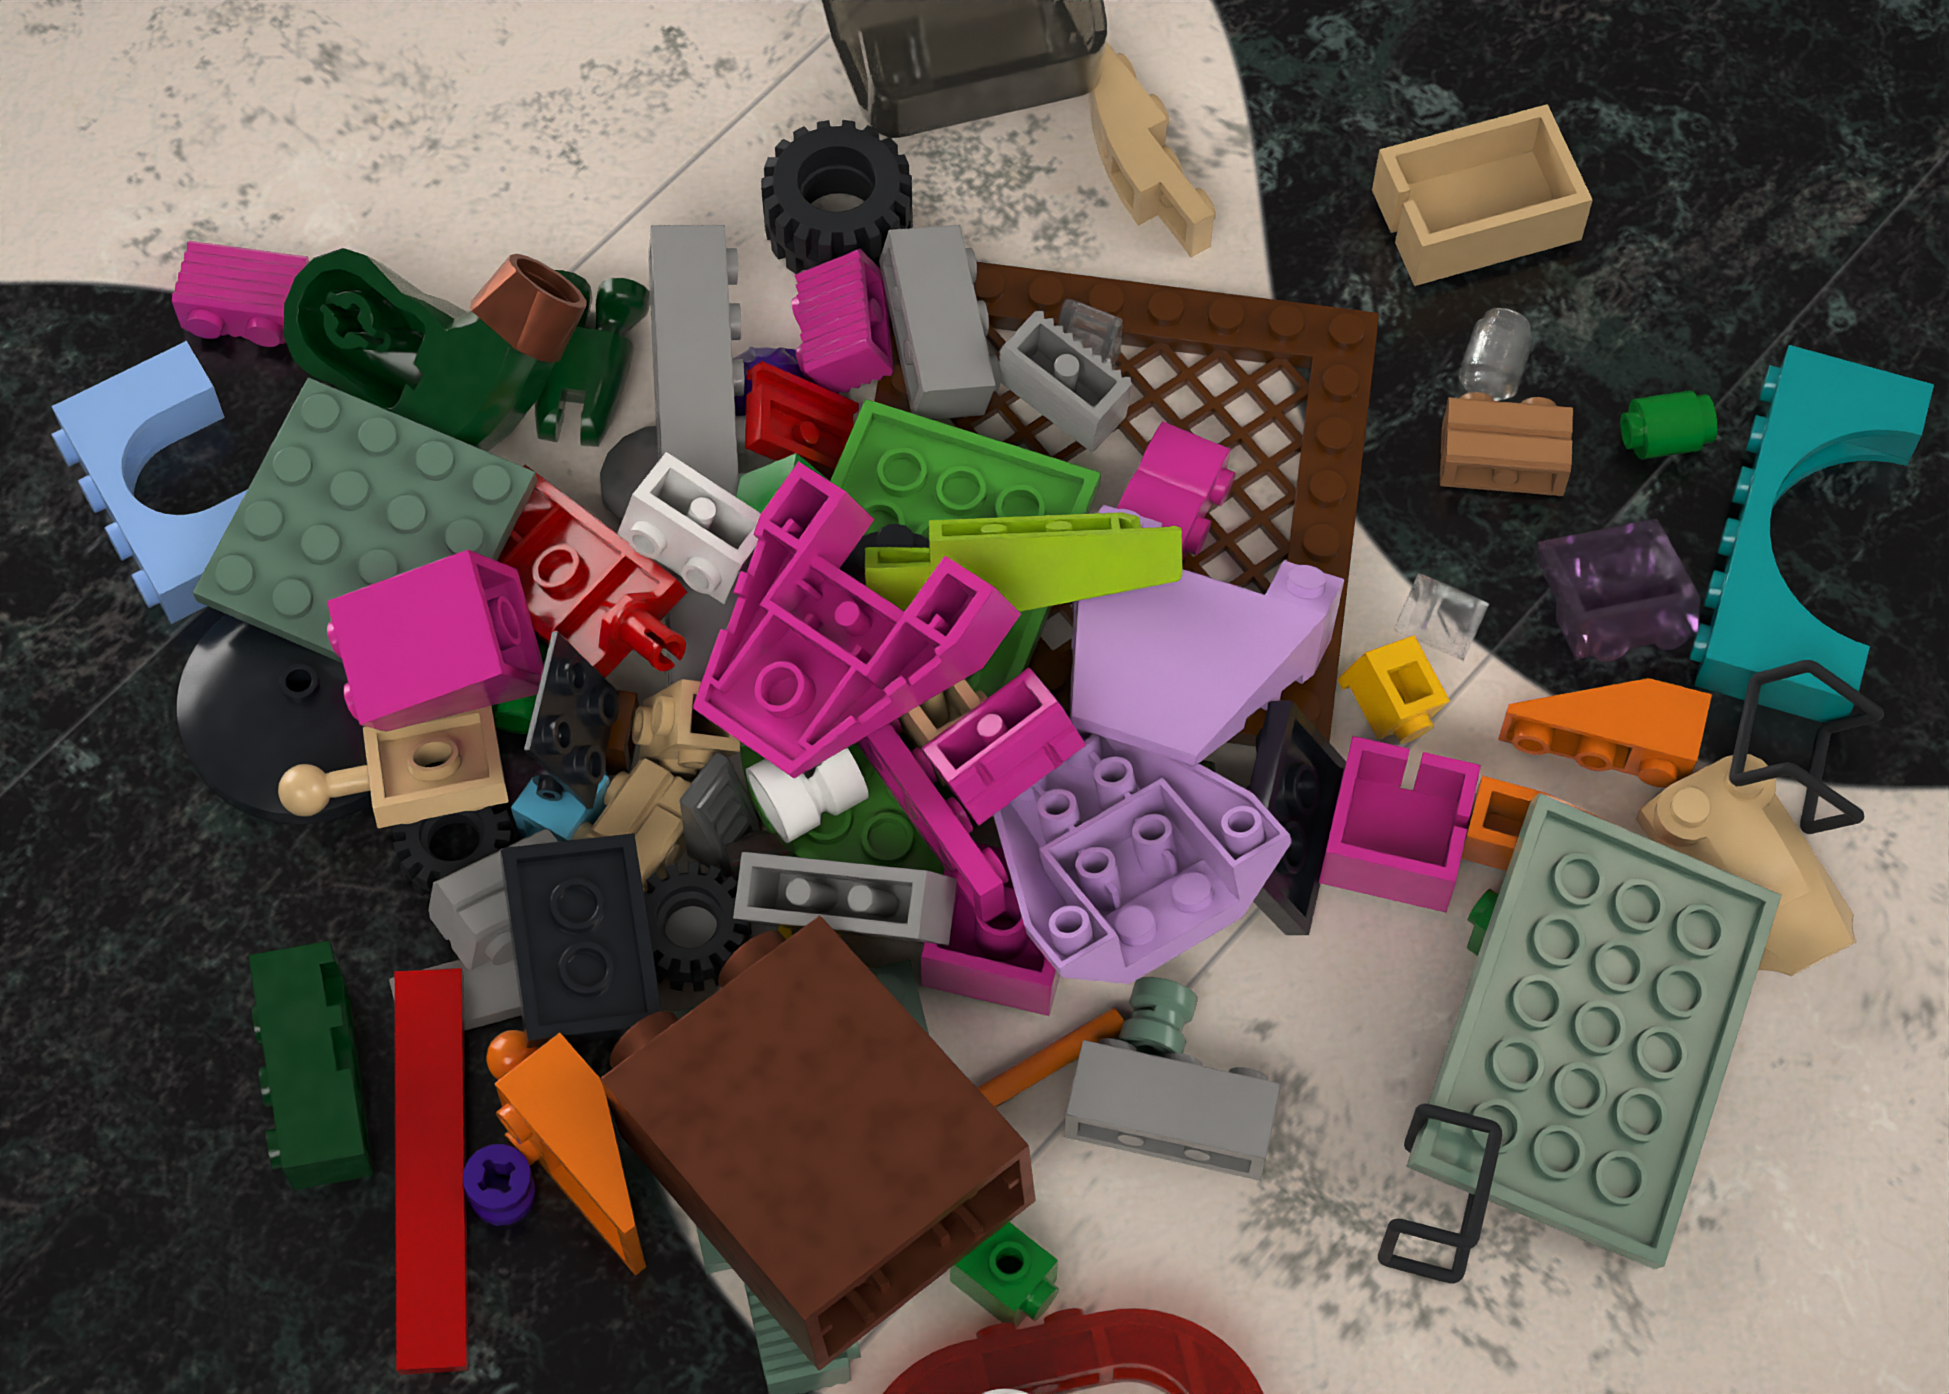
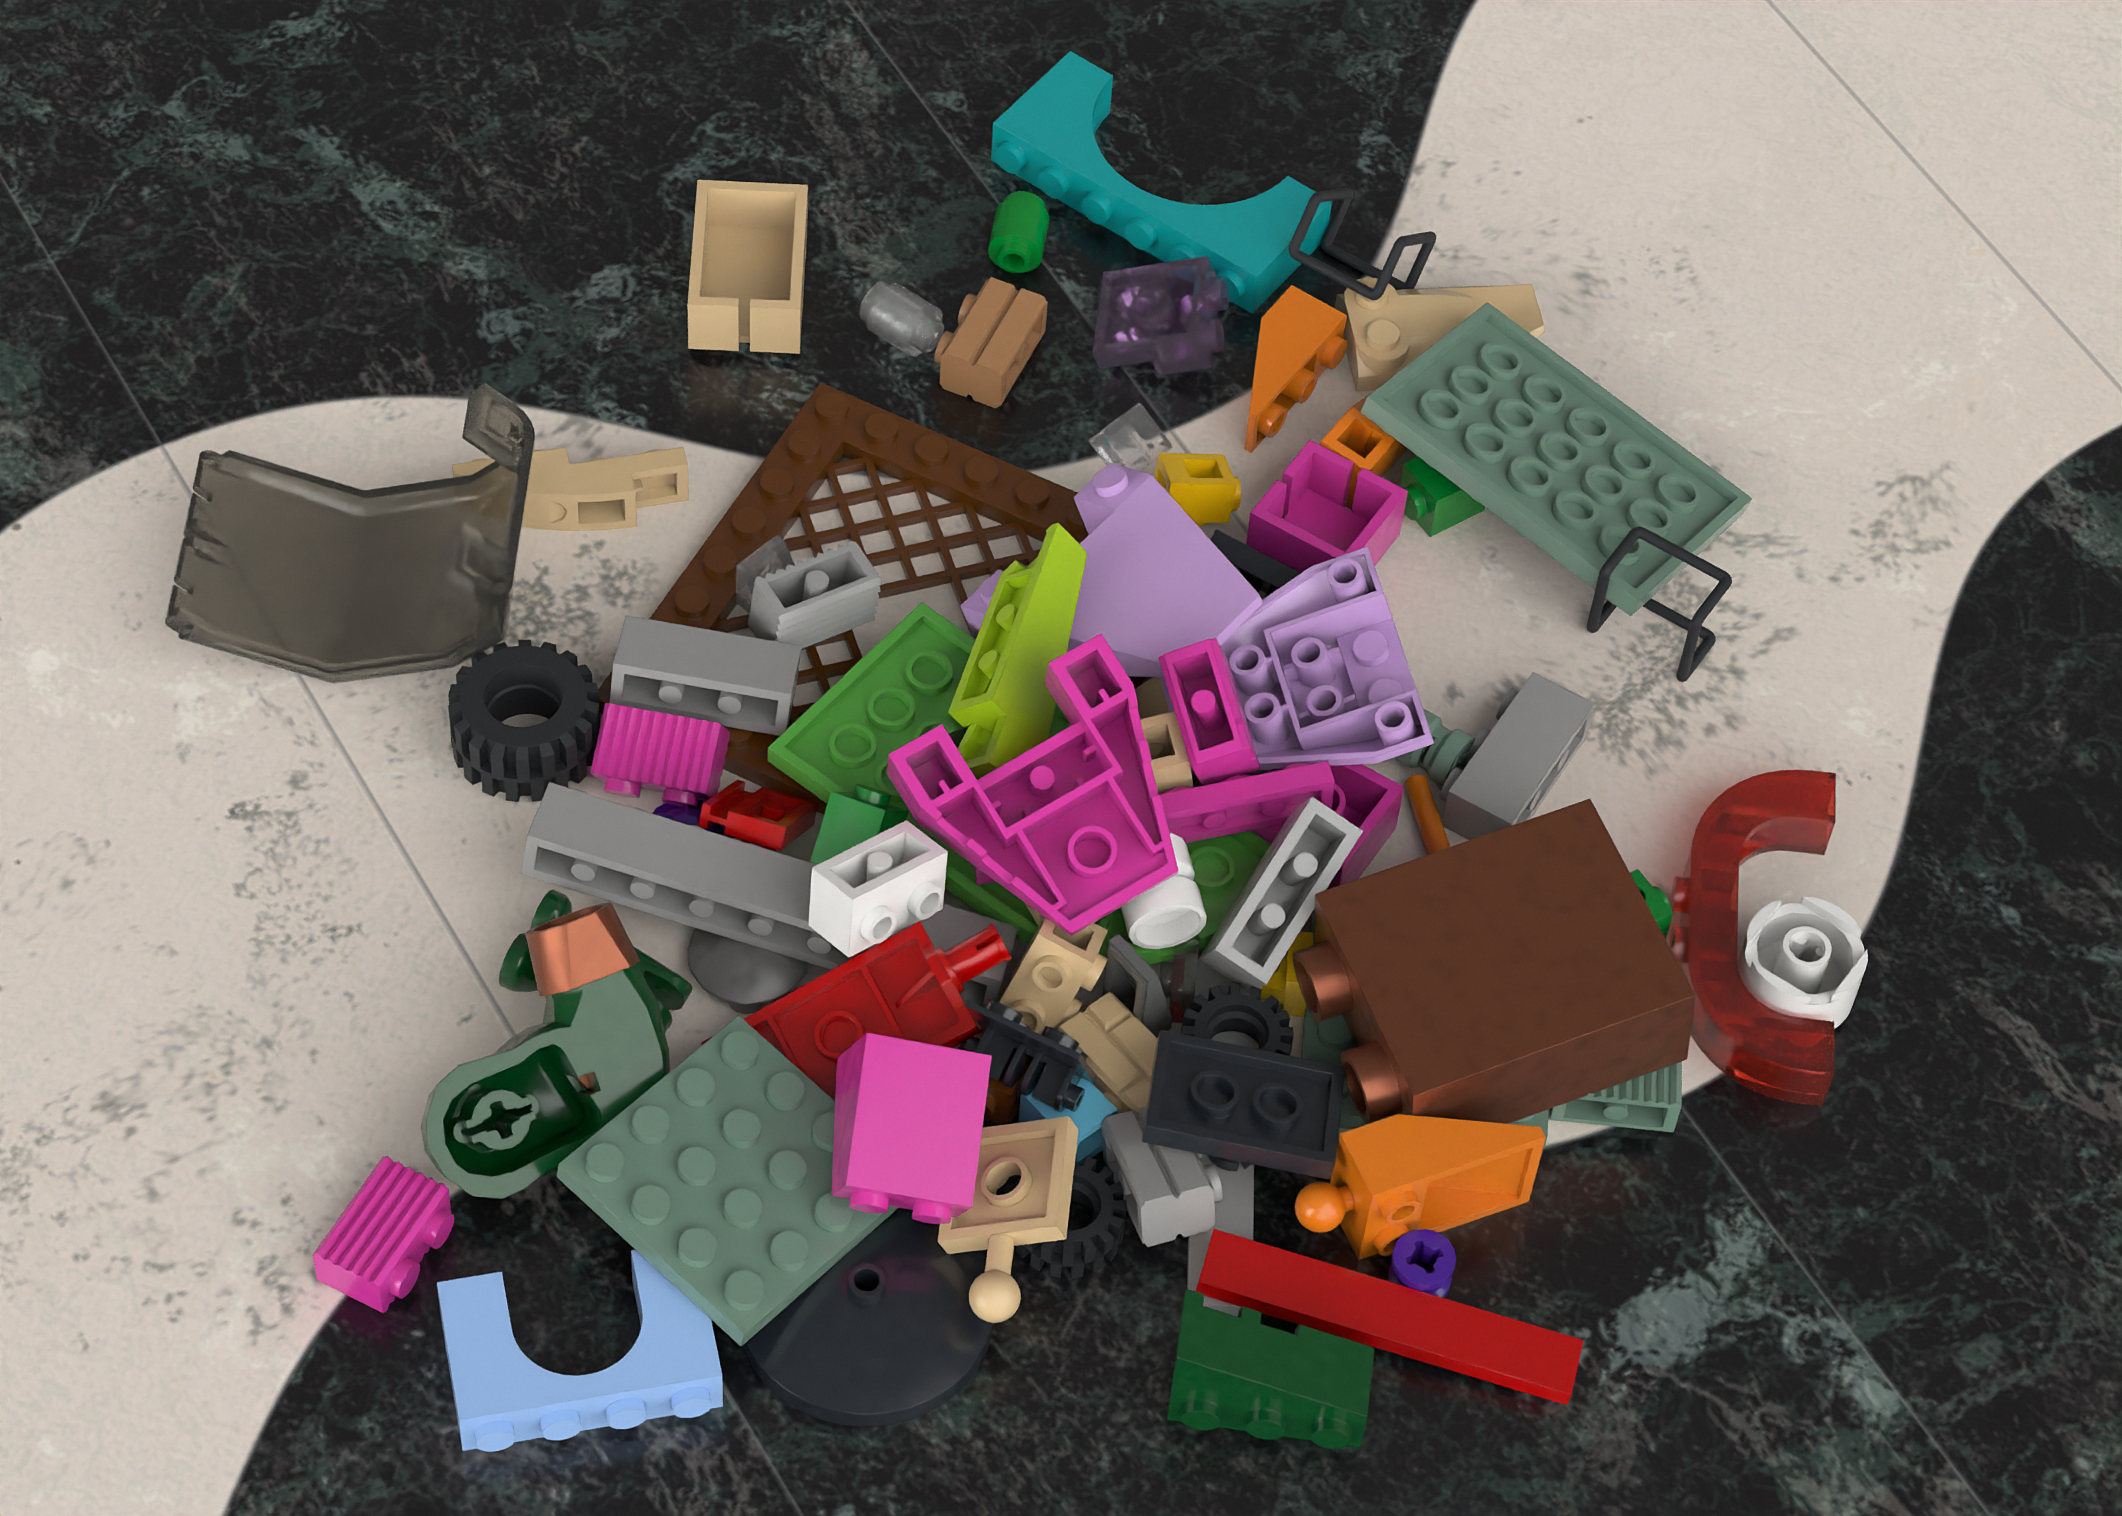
camera: 75 degrees left, 10 degrees down
(1179, 483) = (939, 565): dark pink brick -> none

